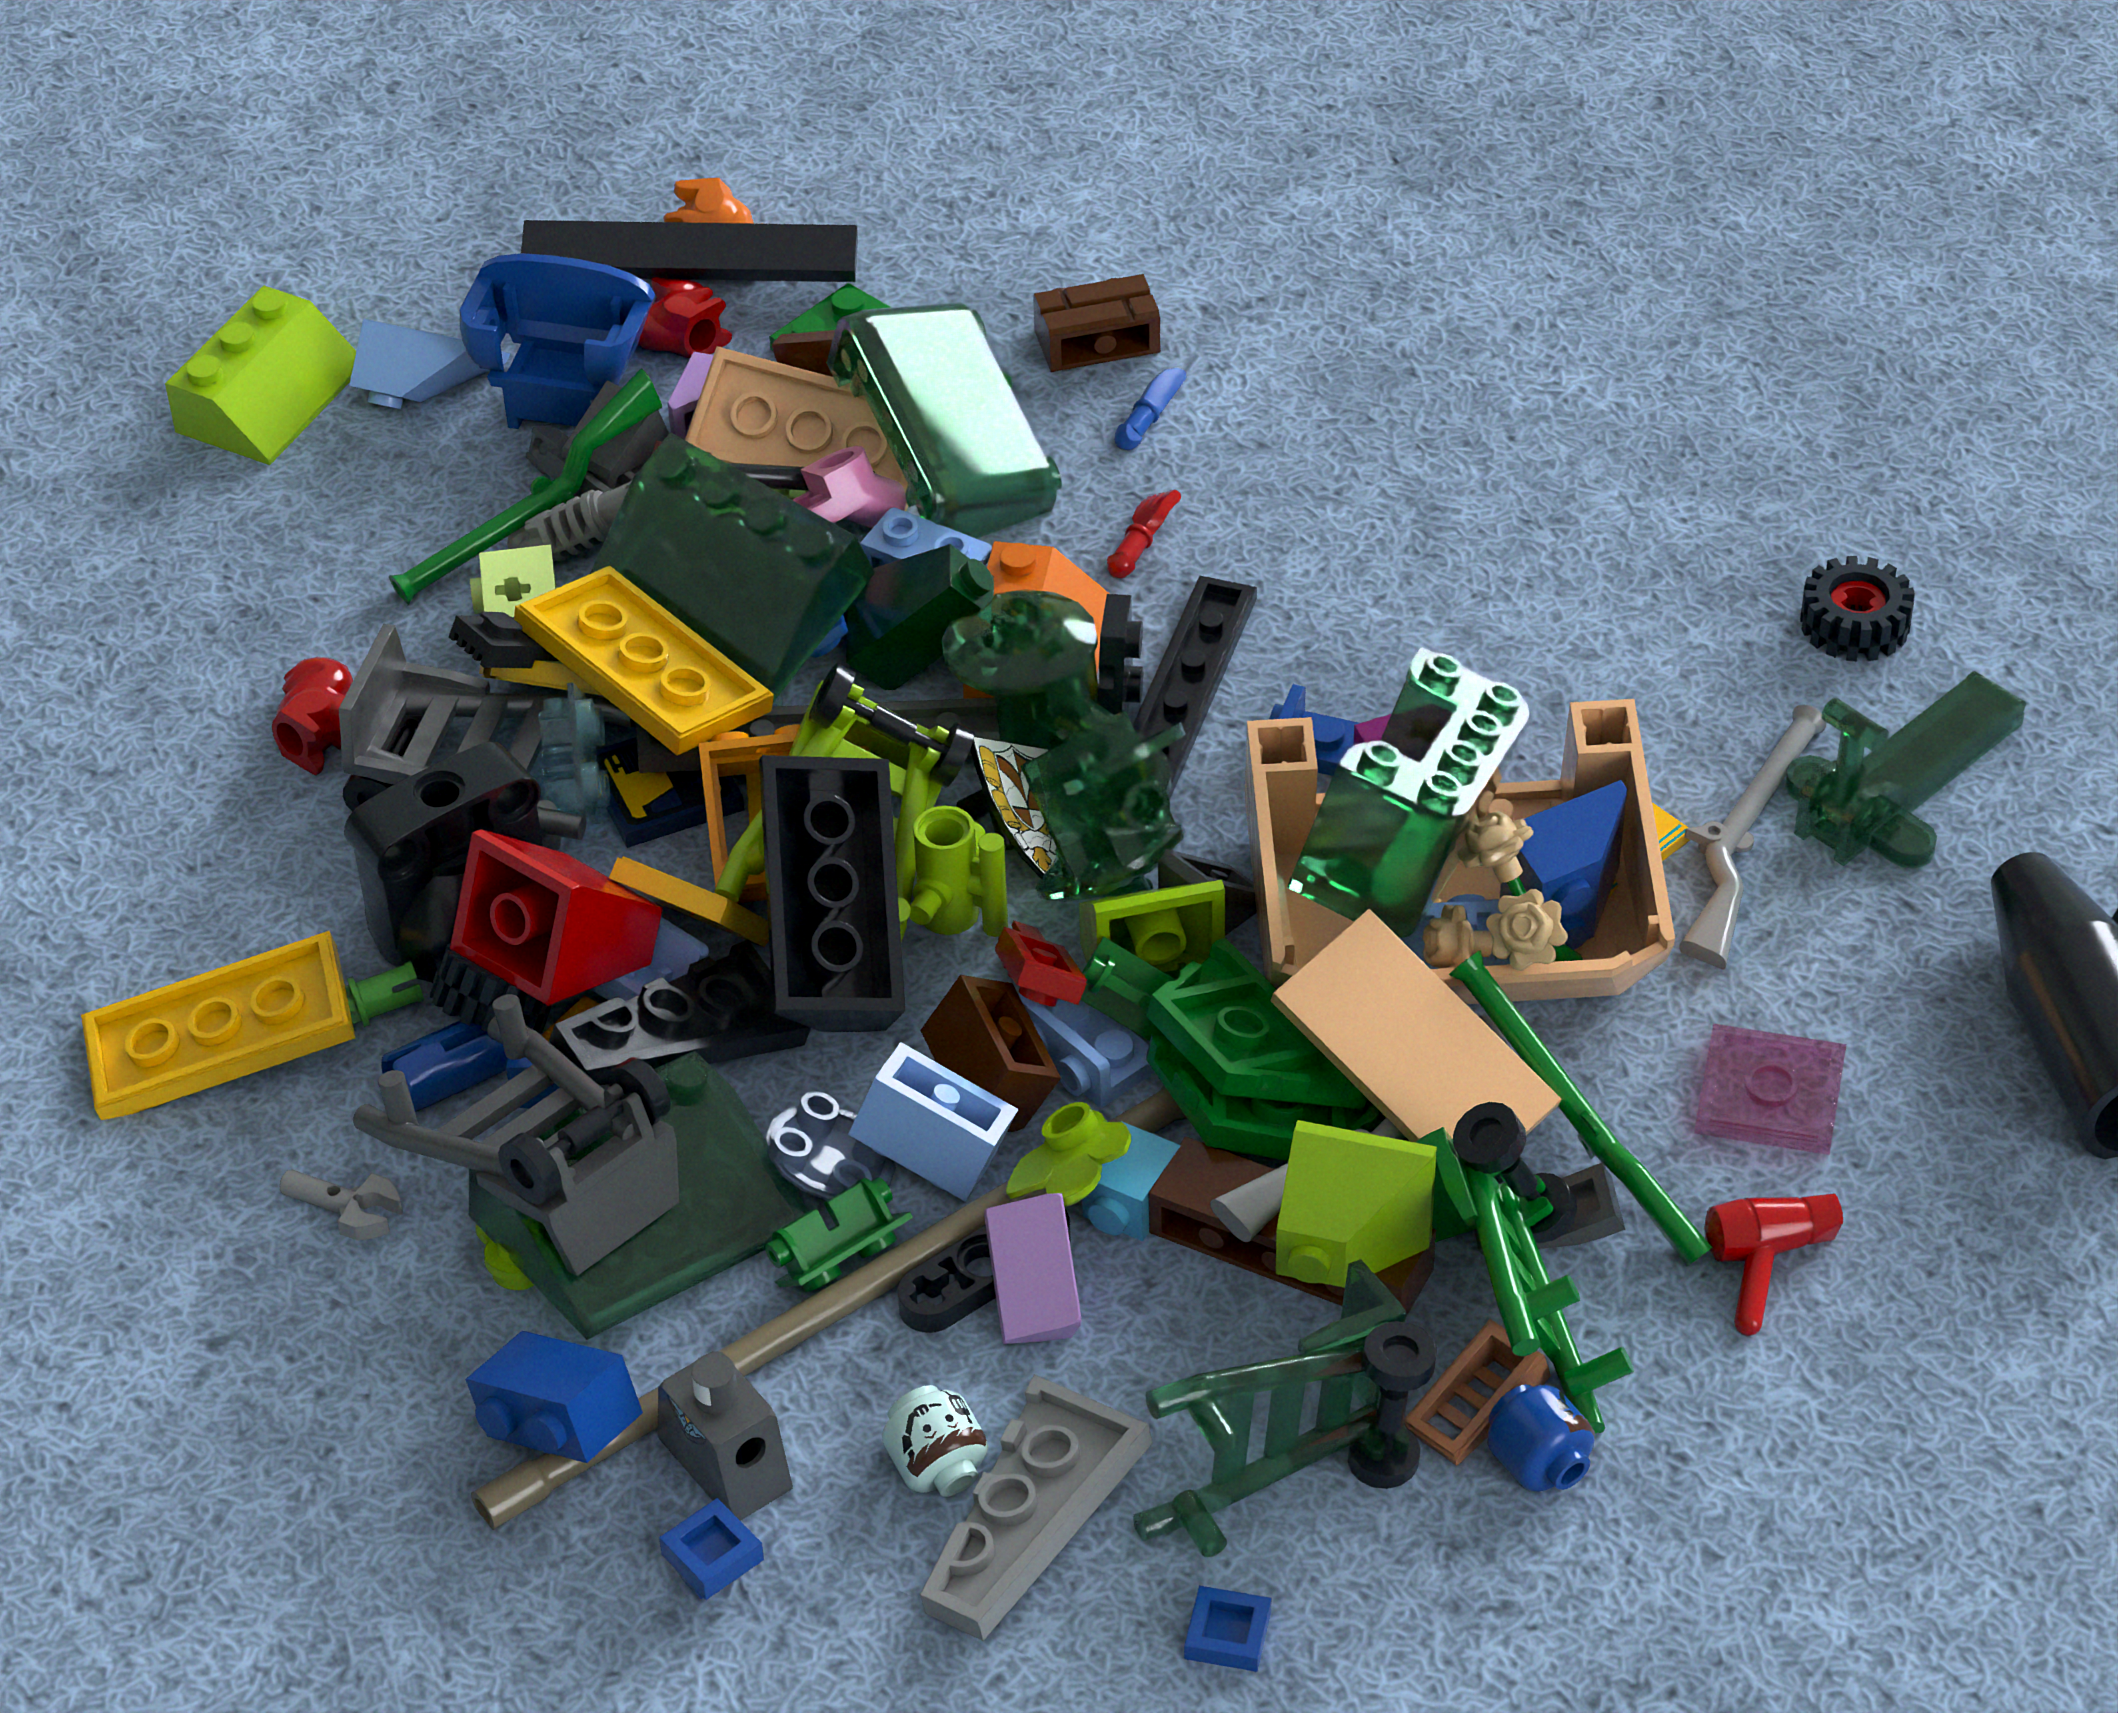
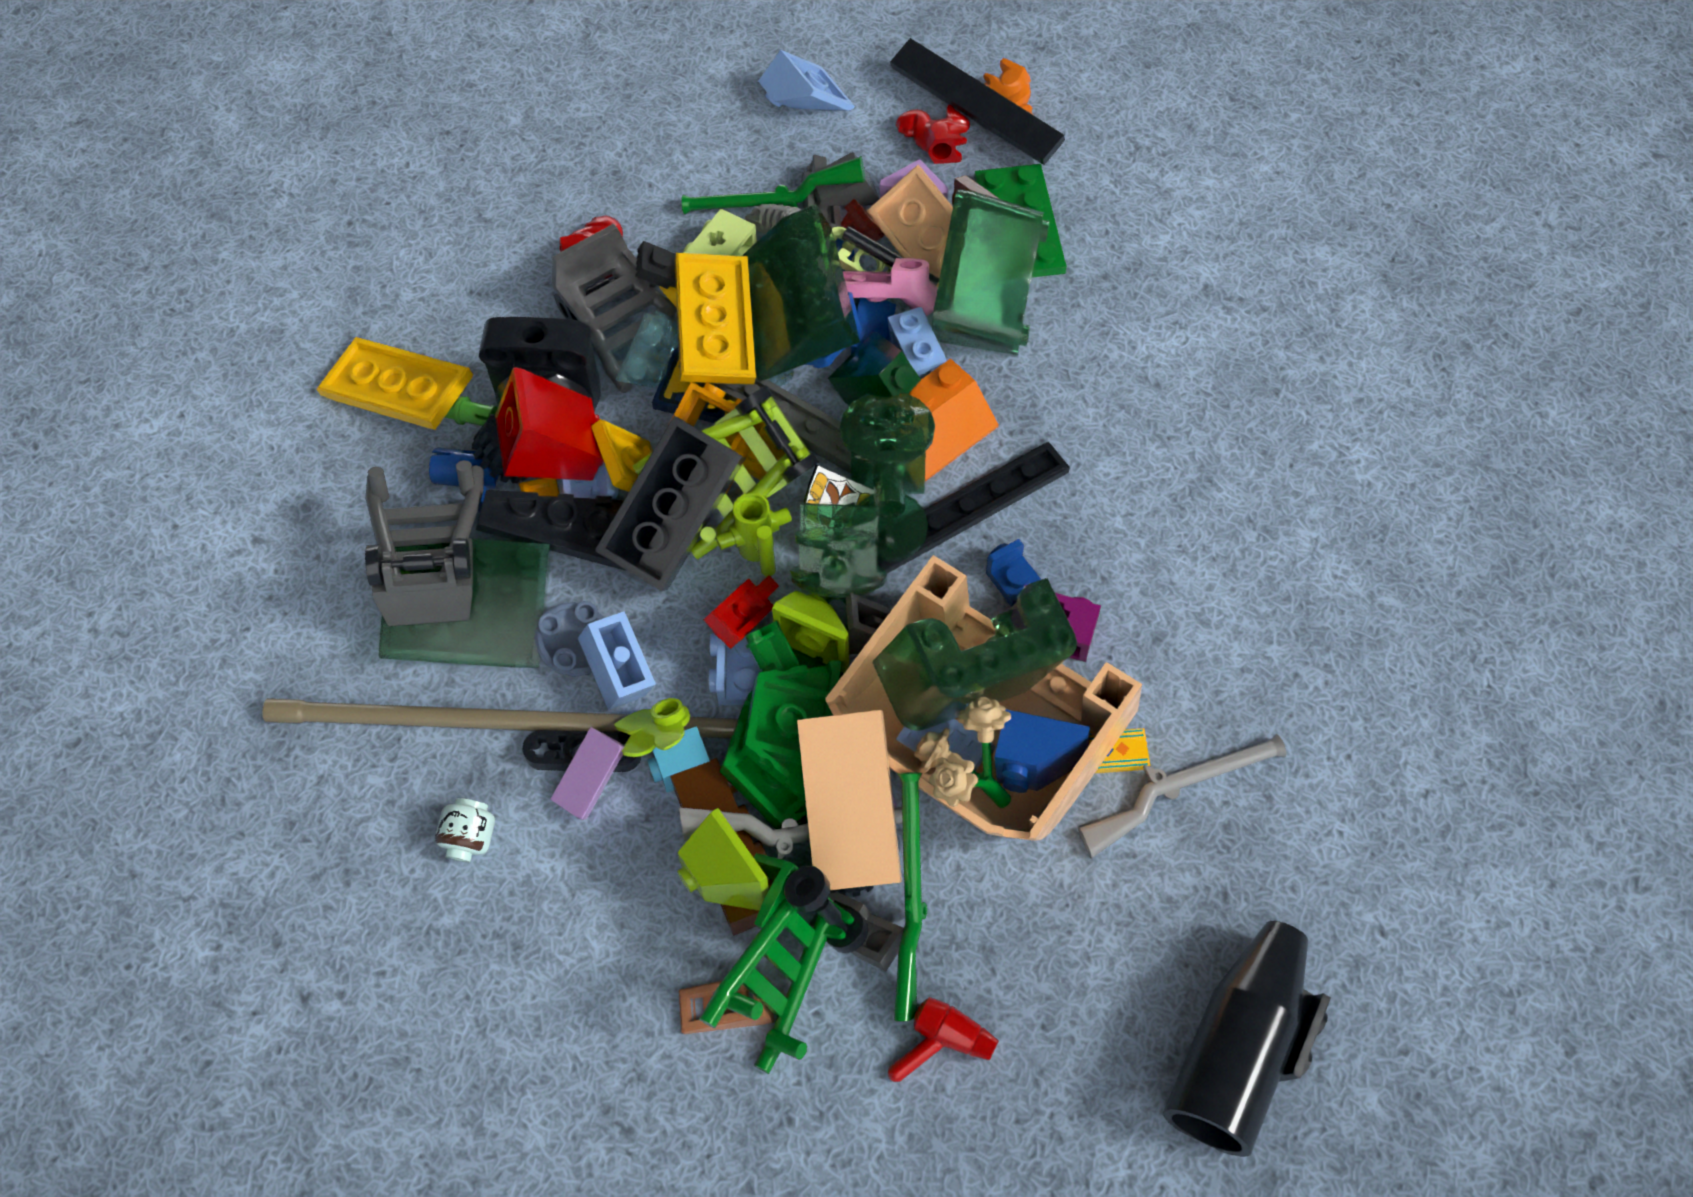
camera: 40 degrees right, 15 degrees up
(261, 377) = (727, 51): lime slope -> none
(347, 1202) = (361, 519): light grey bar -> none
(554, 1396) = (327, 680): blue brick -> none
(573, 328) = (871, 110): blue piece -> none
(711, 1414) = (377, 746): dark grey torso -> none
(711, 1549) = (320, 809): blue tile -> none
(860, 1226) = (513, 689): green hinge -> none
(992, 1042) = (680, 642): reddish brown brick -> none
(1031, 1503) = (494, 891): light grey wing -> none
(1097, 322) = (1136, 262): reddish brown brick -> none
(1119, 644) = (942, 469): black wing -> none
(1138, 536) = (1042, 399): red piece -> none
(1149, 407) = (1117, 327): blue piece -> none
(1227, 1628) = (495, 1034): blue tile -> none
(1362, 1352) = (644, 960): clear green hand -> none
(1540, 1438) = (724, 1057): blue head -> none
(1770, 1089) = (1041, 948): clear pink tile -> none
(1838, 587) = (1362, 679): black bush -> none
(1872, 798) = (1260, 819): clear green piece -> none

